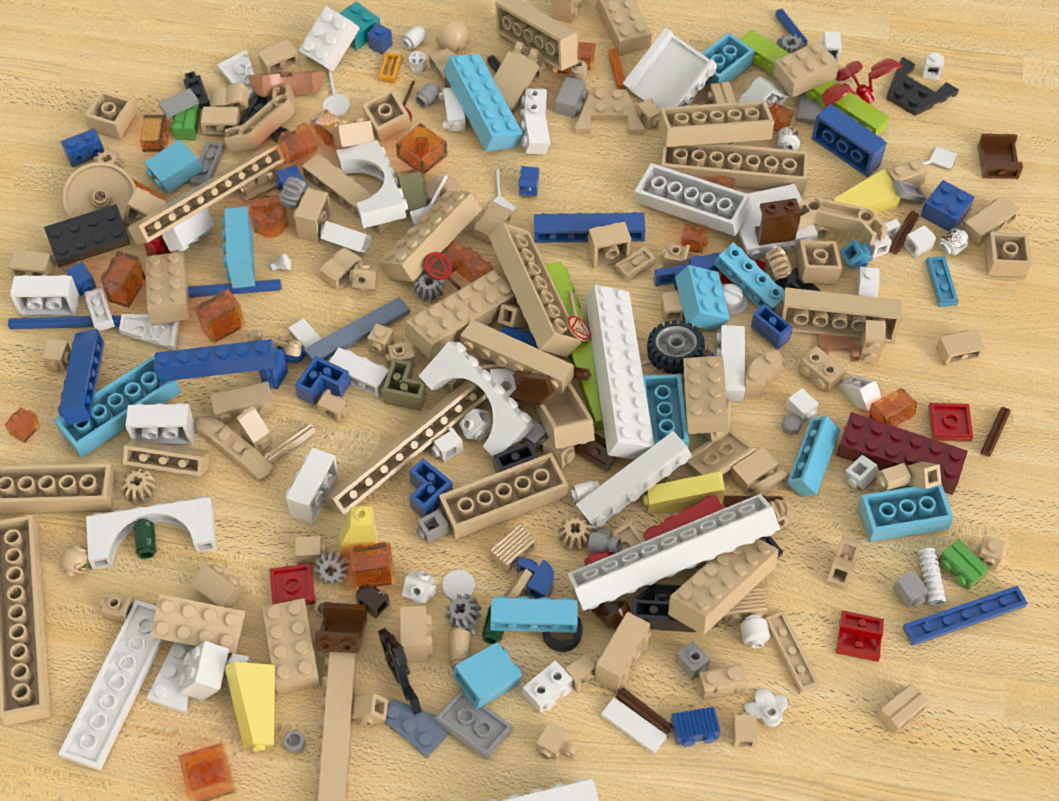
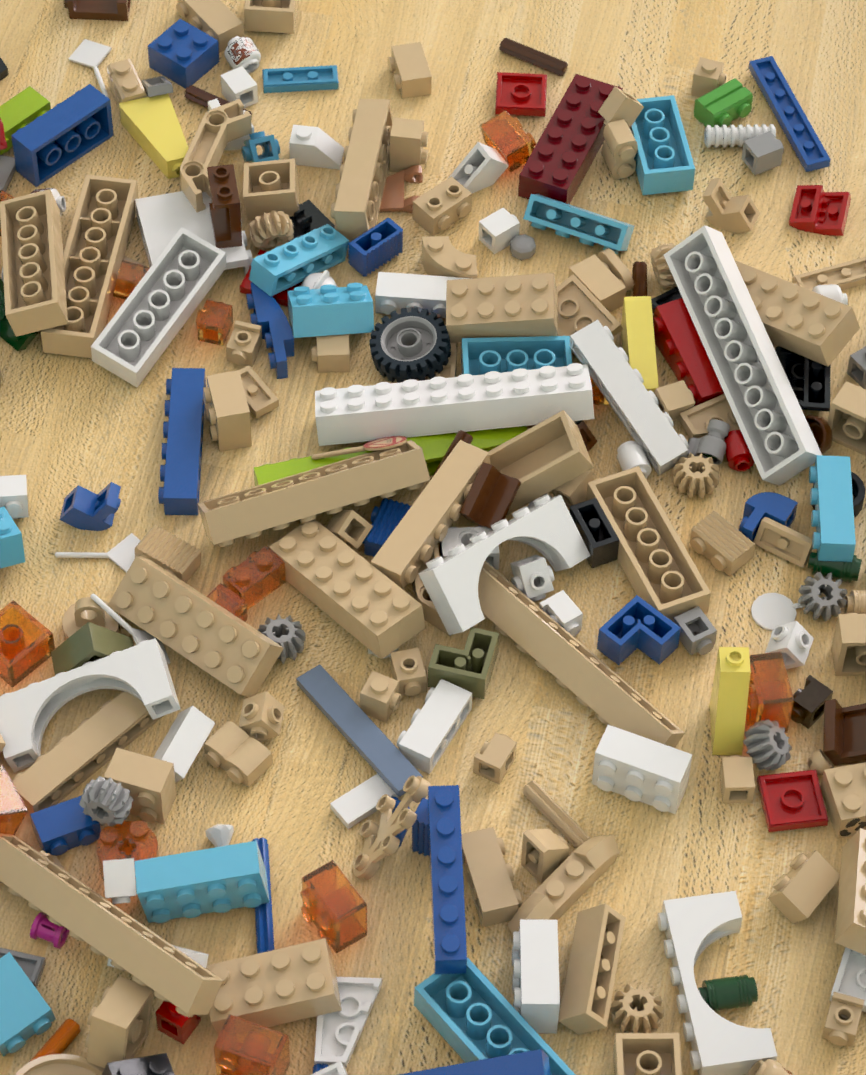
camera: 90 degrees left, 5 degrees down
(240, 198) = (119, 880): none -> white brick
(319, 377) = (452, 765): blue brick -> none
(439, 267) = (262, 614): piece -> none
(640, 515) = (674, 398): none -> tan brick
(862, 472) = (597, 174): white brick -> none

